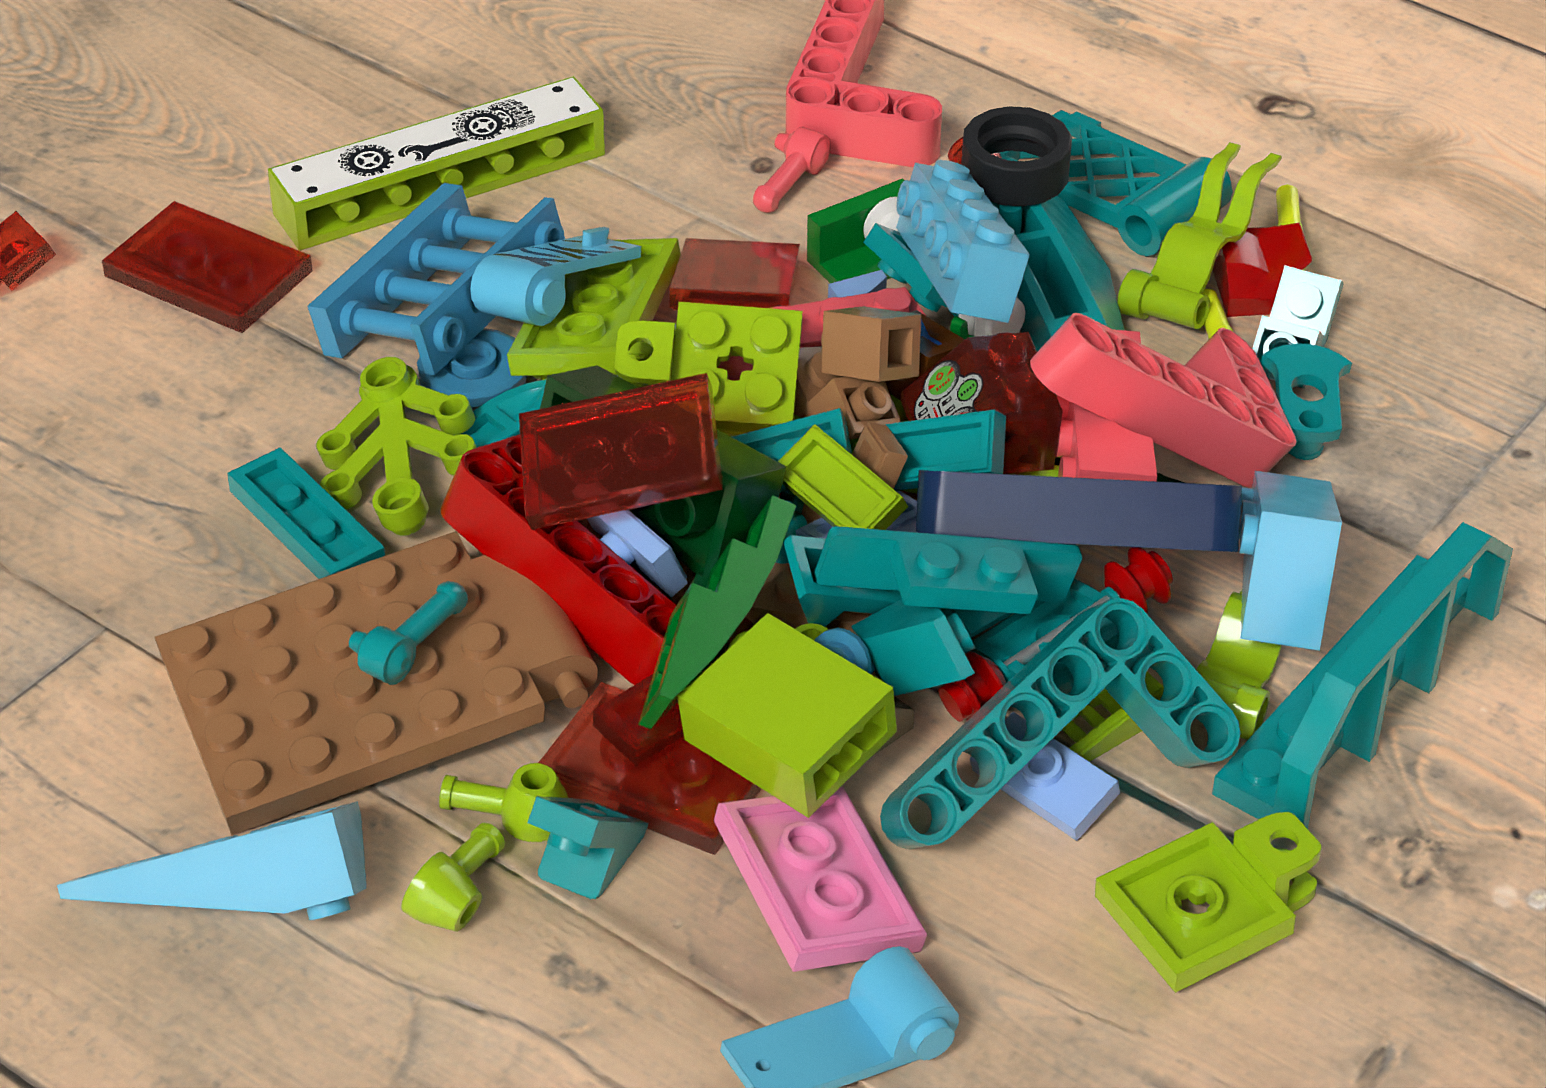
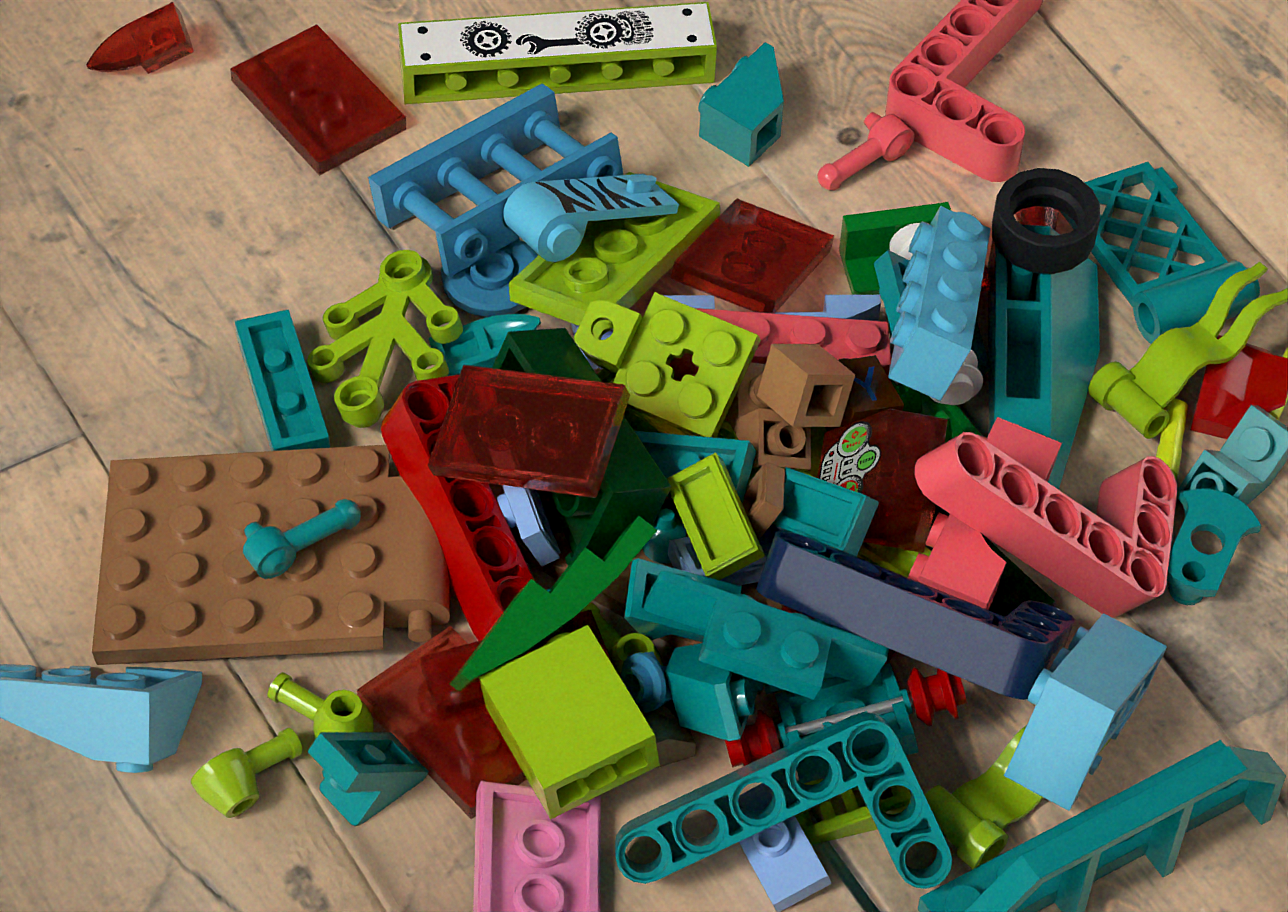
camera: 20 degrees right, 10 degrees up
(654, 160) = (745, 108): none -> teal slope

